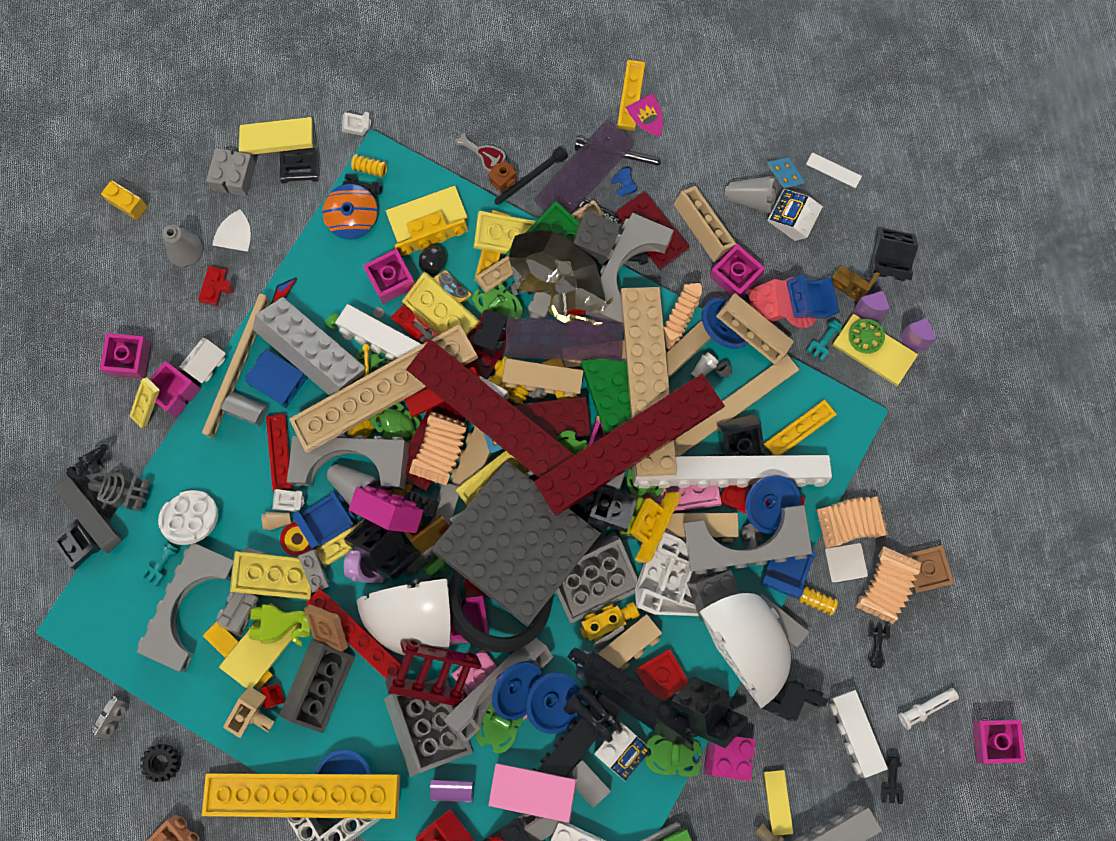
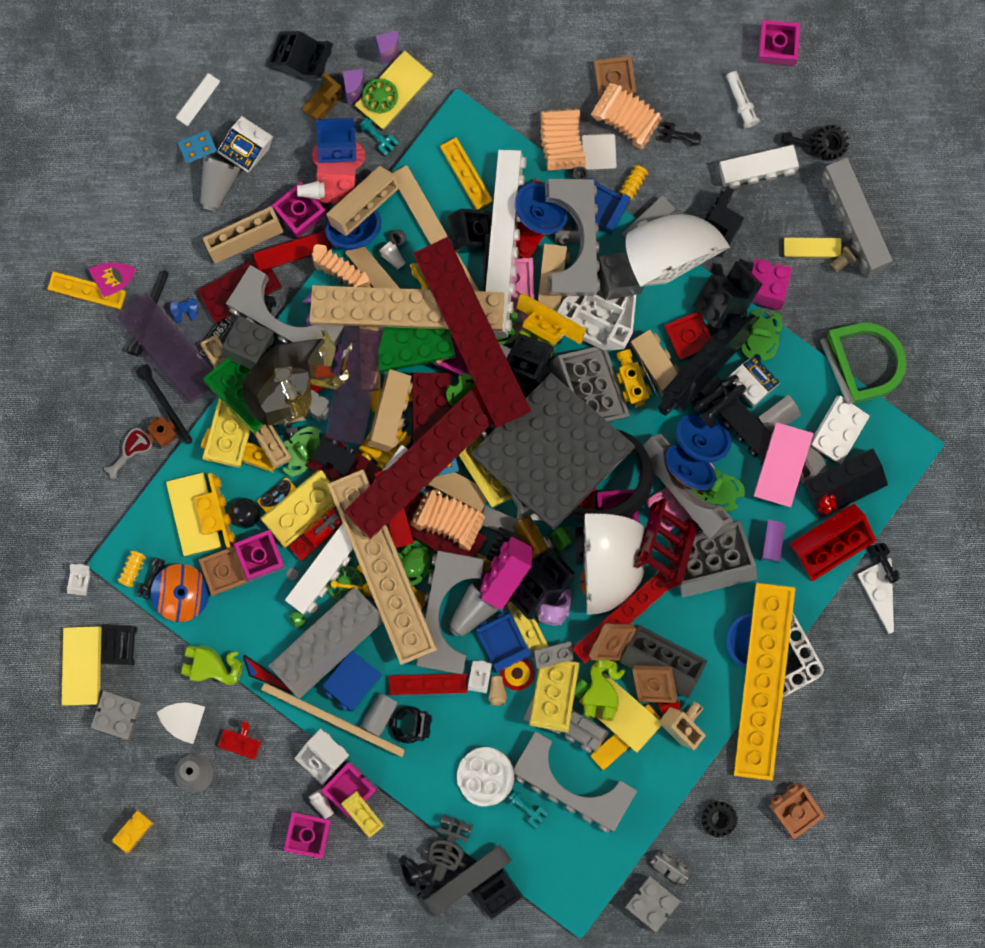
camera: 90 degrees left, 5 degrees up
(69, 703) = (652, 904): none -> light grey piece
(159, 360) = (321, 803): none -> white cone
(236, 447) = (421, 727): none -> black piece
(283, 245) = (209, 665): none -> lime hips
(283, 604) = (581, 688): none -> bright green hinge
(289, 678) = (655, 684): none -> medium nougat plate
(372, 244) = (223, 571): none -> medium nougat plate
(693, 268) = (289, 251): none -> red tile
(757, 279) = (311, 190): none -> white cone
(817, 548) = (583, 172): none -> dark grey hinge
(900, 822) = (824, 151): none -> black tyre

